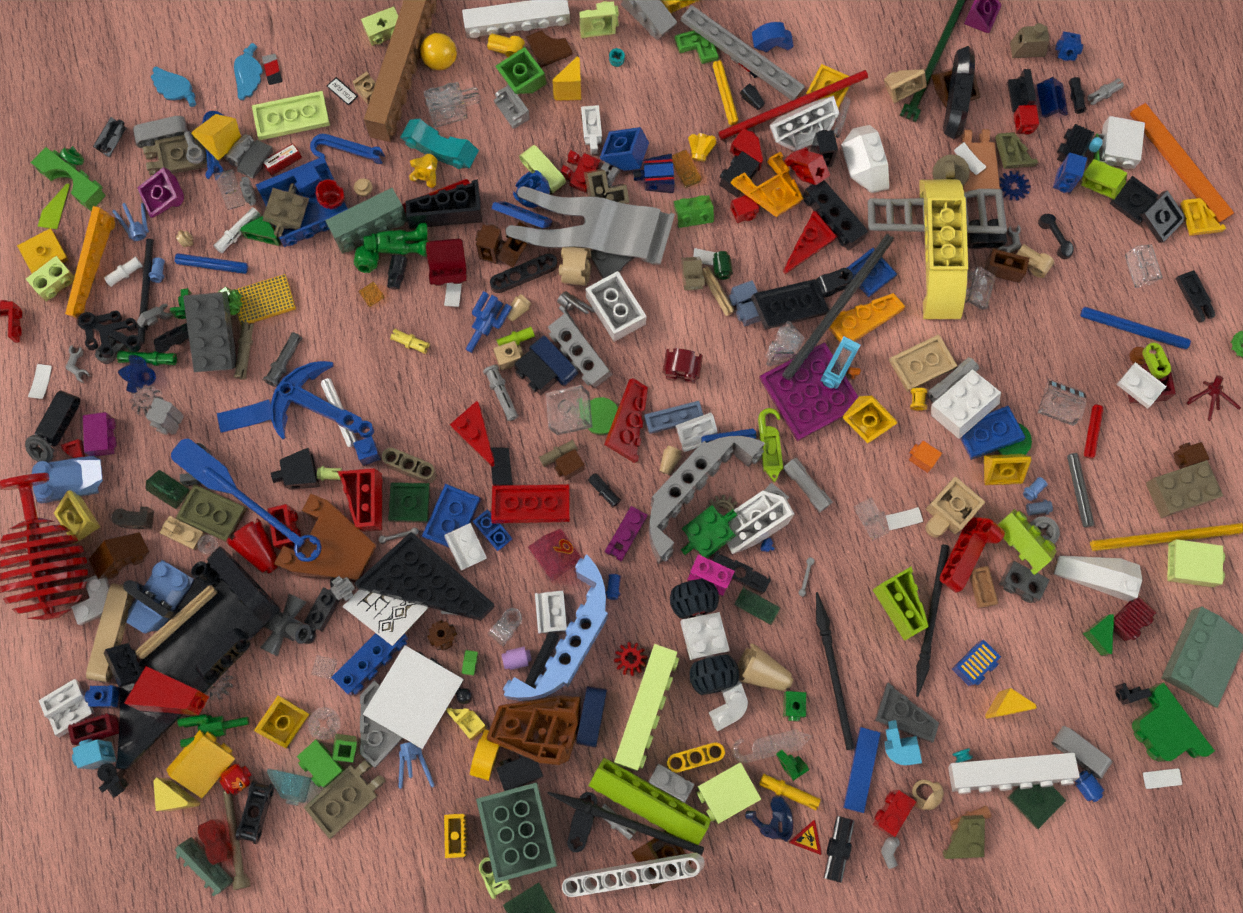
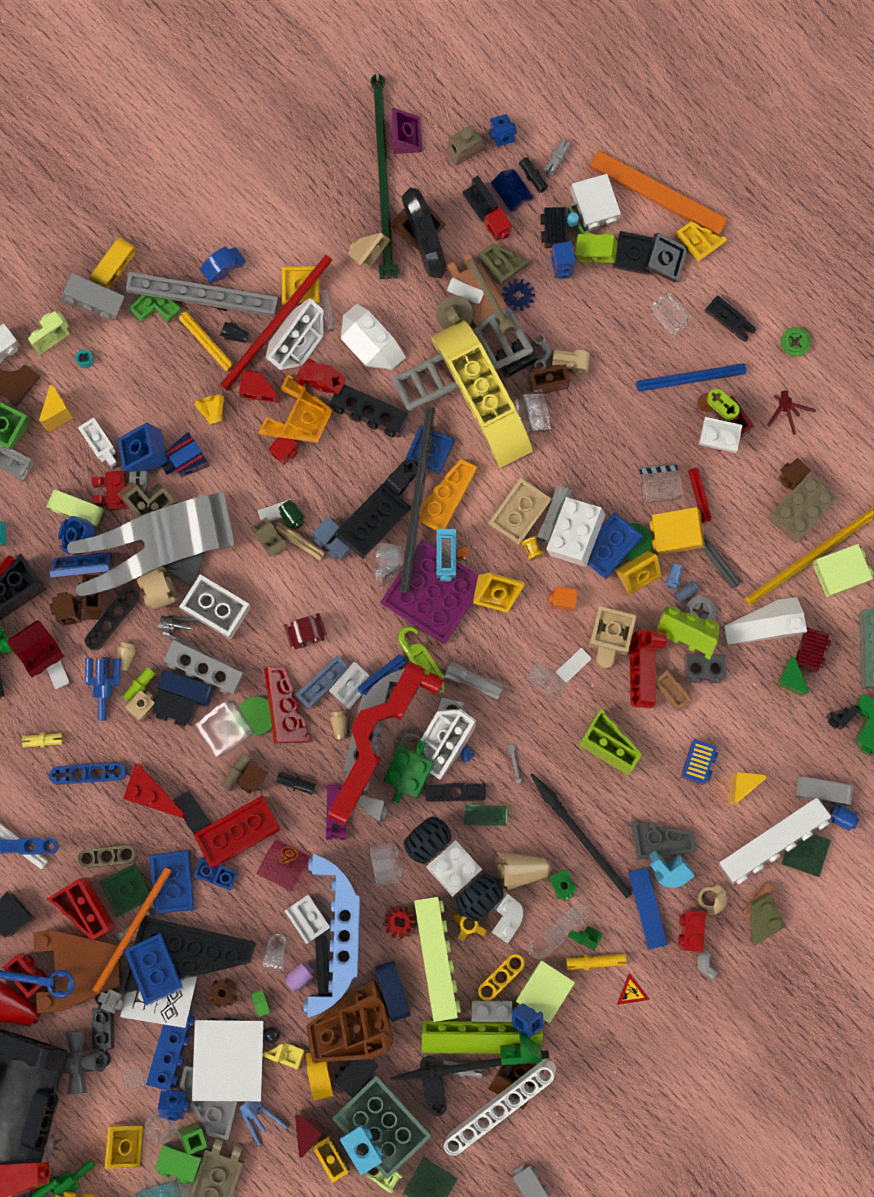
camera: 30 degrees left, 5 degrees up
(328, 473) = (37, 903): yellowish green pin -> none
(344, 708) = (173, 1105): none -> blue brick
(367, 451) = (61, 864): blue brick -> none
(393, 580) = (153, 969): none -> blue tile
(394, 537) = (131, 930): none -> orange piece
(431, 390) = (88, 773): none -> blue beam
(447, 798) = (307, 1131): none -> dark red slope
(465, 546) = (199, 902): white plate -> none
(481, 853) = (365, 1161): none -> medium azure brick
(498, 385) = (146, 737): light grey pin -> none
(613, 587) = (350, 866): blue pin -> none
(644, 599) = (385, 865): none -> clear brick
(681, 837) = (522, 1053): none -> green slope
(686, 169) = (208, 436): clear yellow tile -> none
(688, 469) = (362, 729): none -> red beam
(689, 696) = (467, 926): none -> yellow rock
(694, 211) = (238, 474): bright green bracket -> none
(700, 808) = (527, 1020): none -> blue brick
(711, 572) = (431, 811): dark pink panel -> none
(739, 165) = (259, 409): black brick -> none
(781, 813) = (598, 983): dark blue helmet -> none
(813, 239) = (362, 443): red wing -> none
(825, 144) = (327, 352): black brick -> none
(839, 849) = (661, 987): black piece -> none
(923, 664) = (654, 787): black piece -> none
(962, 755) = (726, 849): teal bush -> none
(992, 201) = (506, 325): none -> dark tan piece
(1058, 450) = (677, 531): none -> yellow brick
(1066, 247) = (594, 332): black bar -> none

